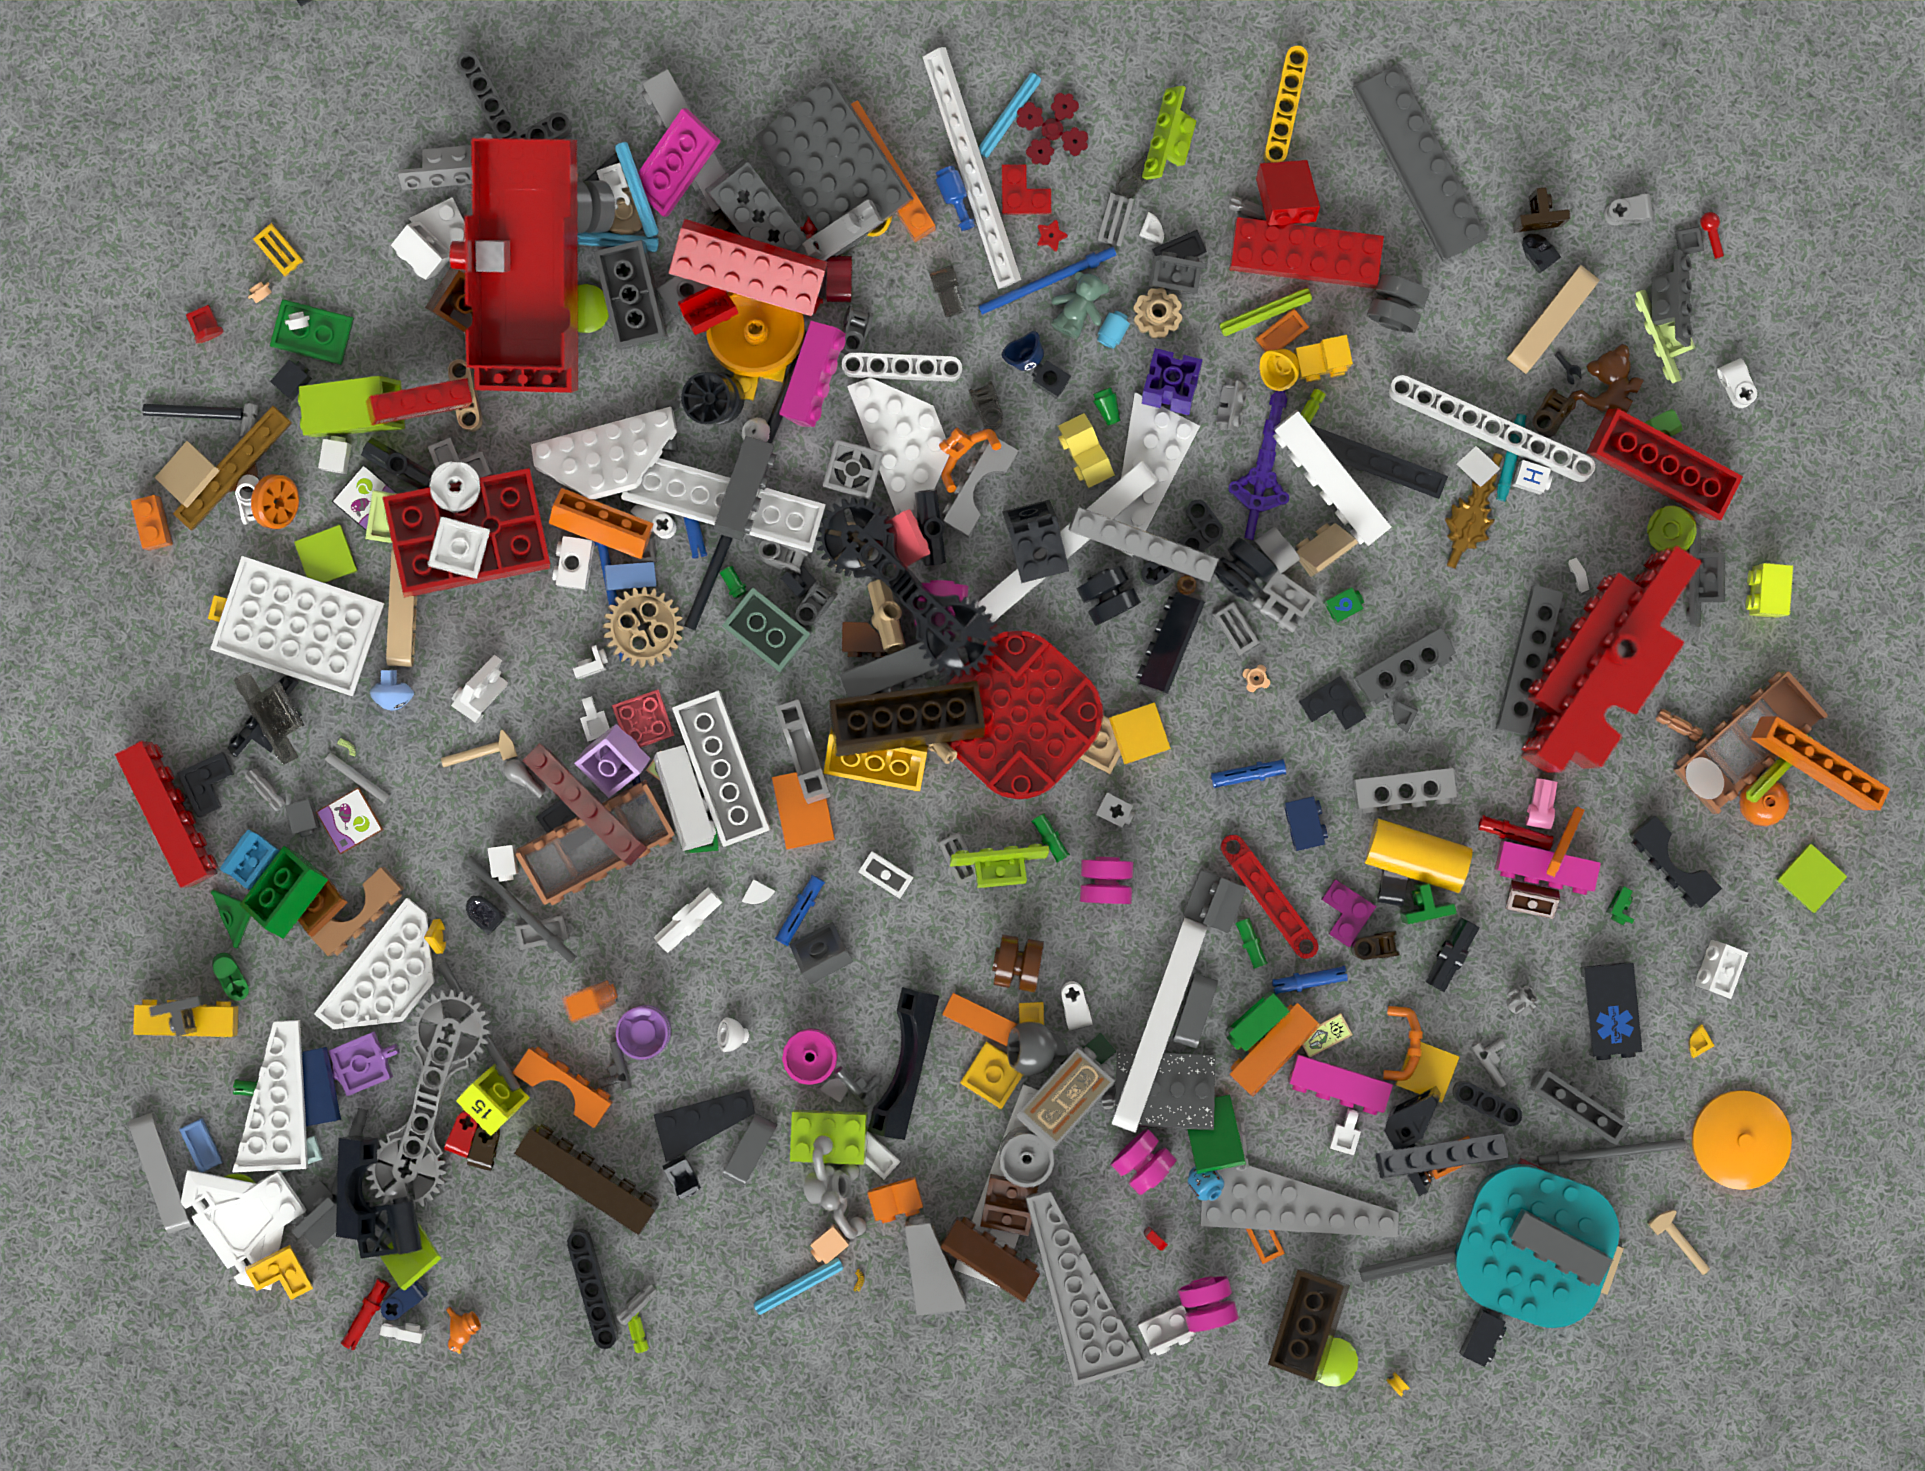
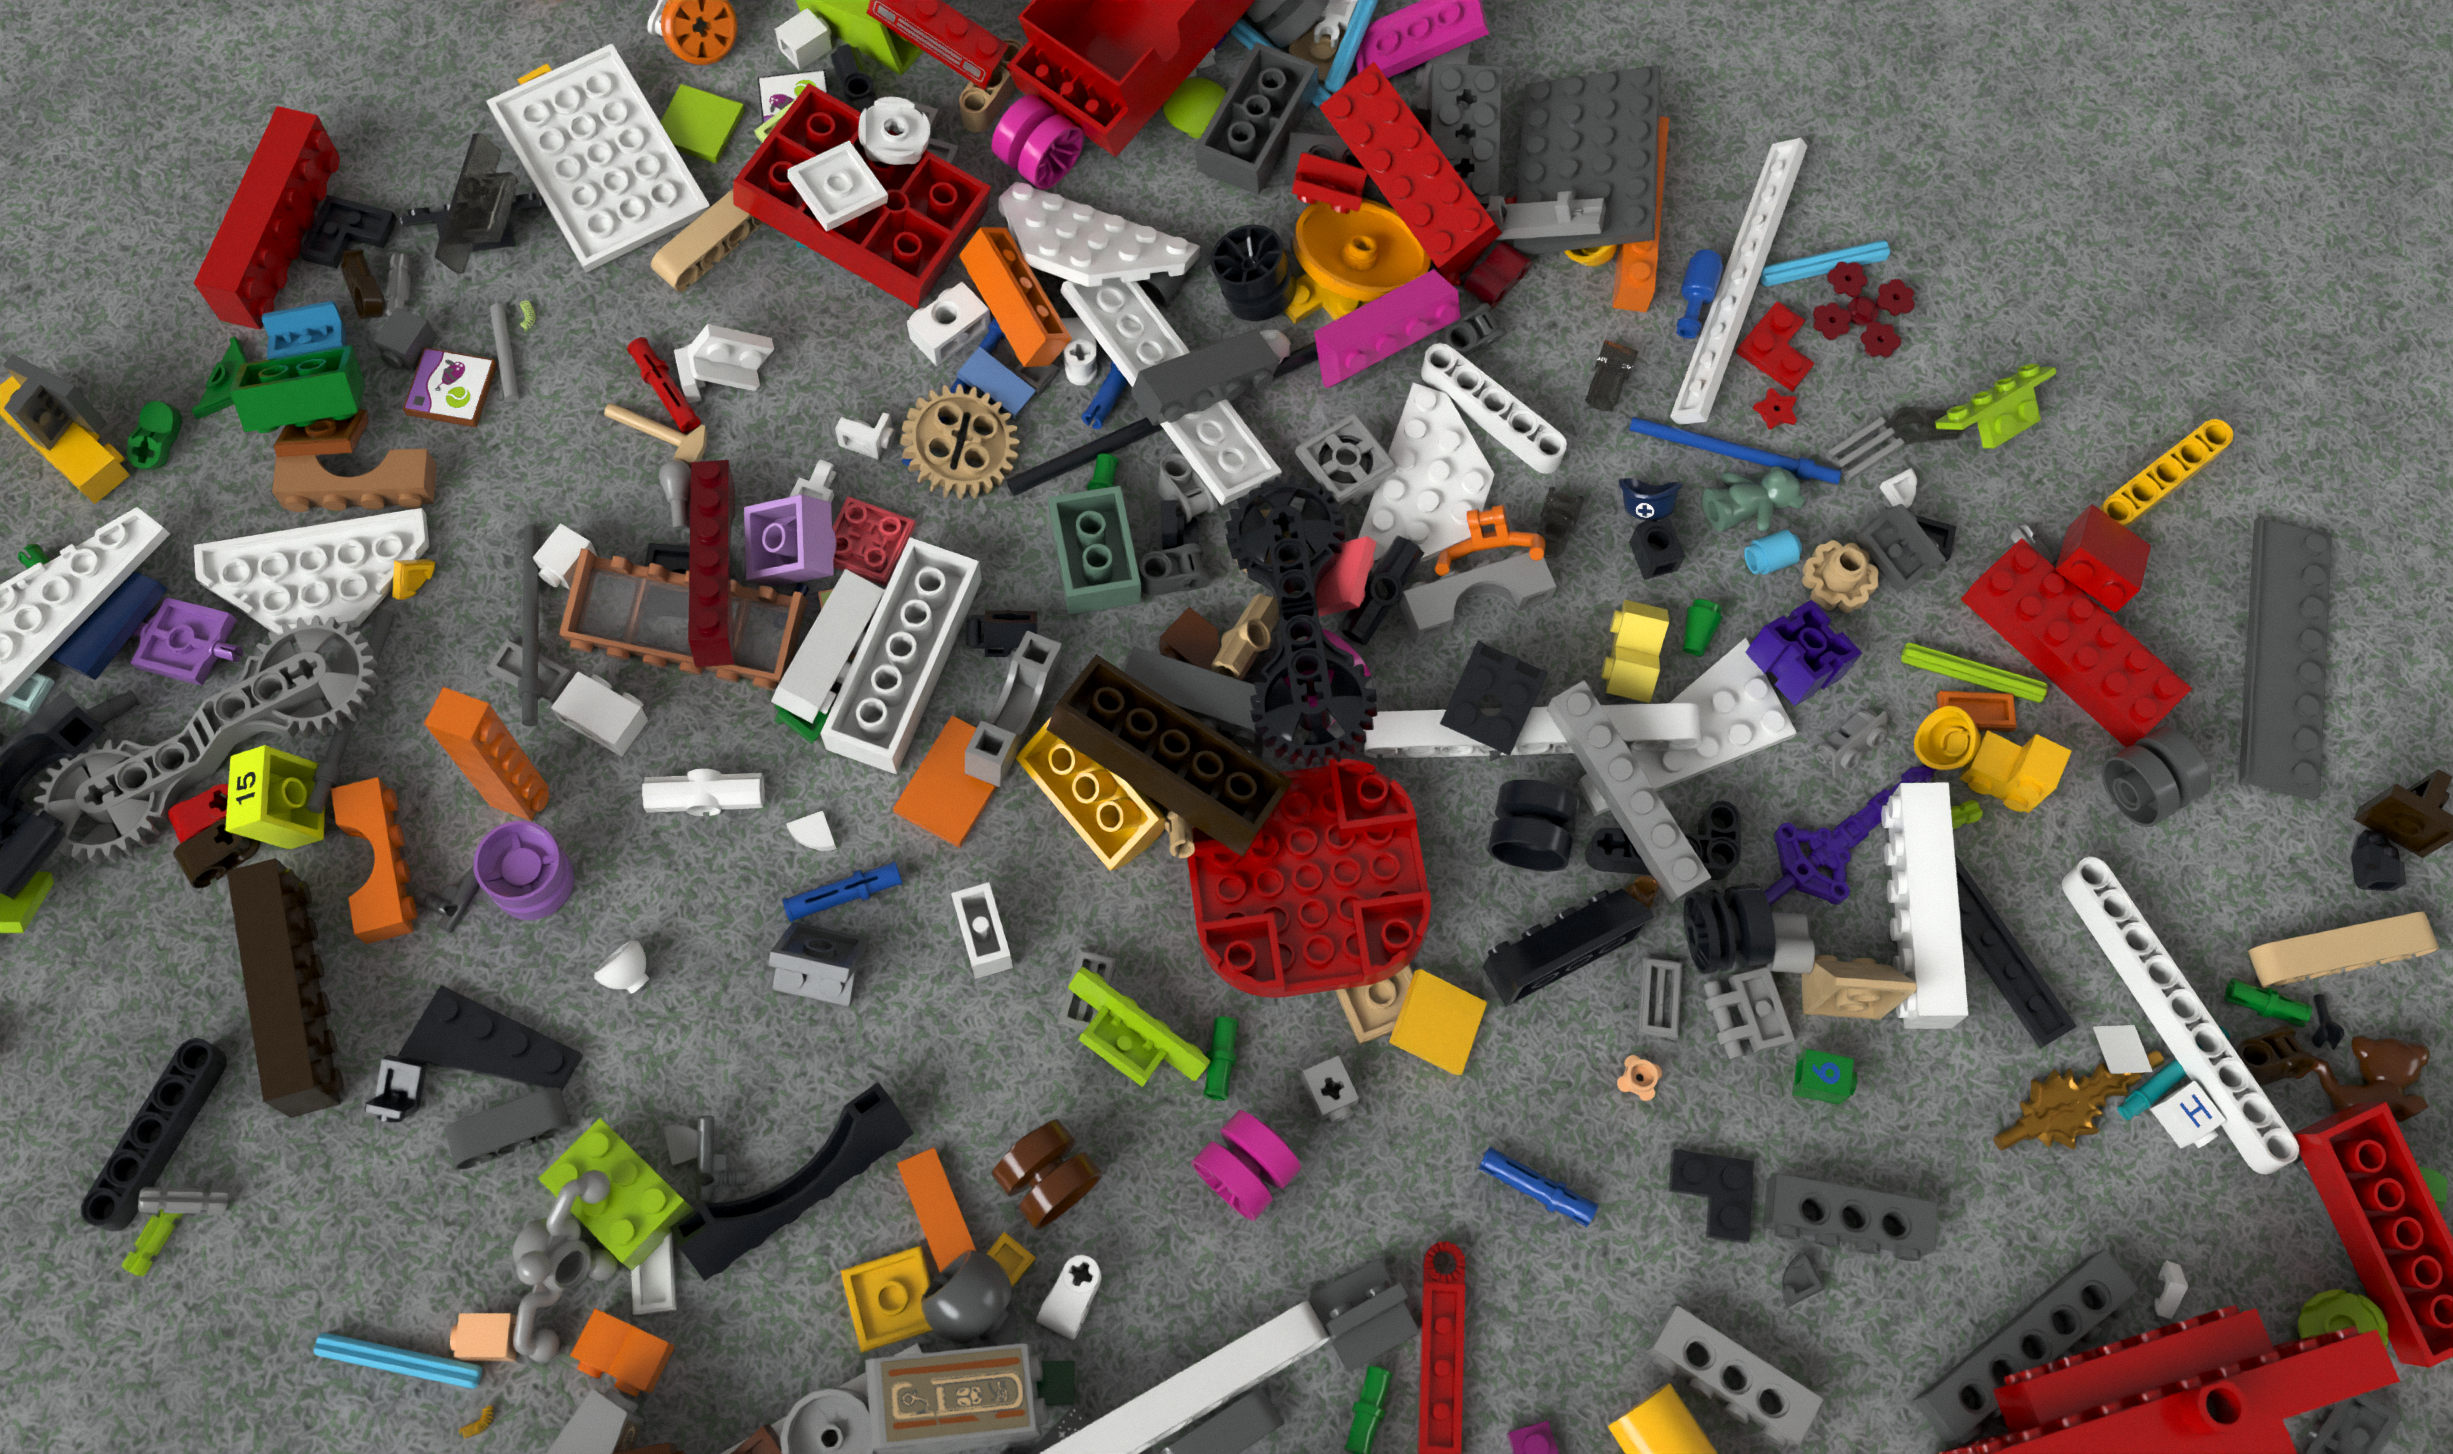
camera: 35 degrees right, 20 degrees down
(252, 808) = (362, 285): none -> dark brown piece
(389, 693) = (624, 292): light blue piece -> none
(430, 717) = (647, 361): none -> red pin
(484, 914) = (486, 595): rock -> none
(517, 416) = (1037, 141): none -> dark pink wheel
(599, 924) = (600, 713): none -> white brick
(757, 711) = (1001, 630): none -> black piece
(805, 1070) = (677, 1050): dark pink wheel -> none
(1305, 823) = (1564, 1310): dark blue brick -> none
(1533, 380) = (2267, 1002): none -> green pin

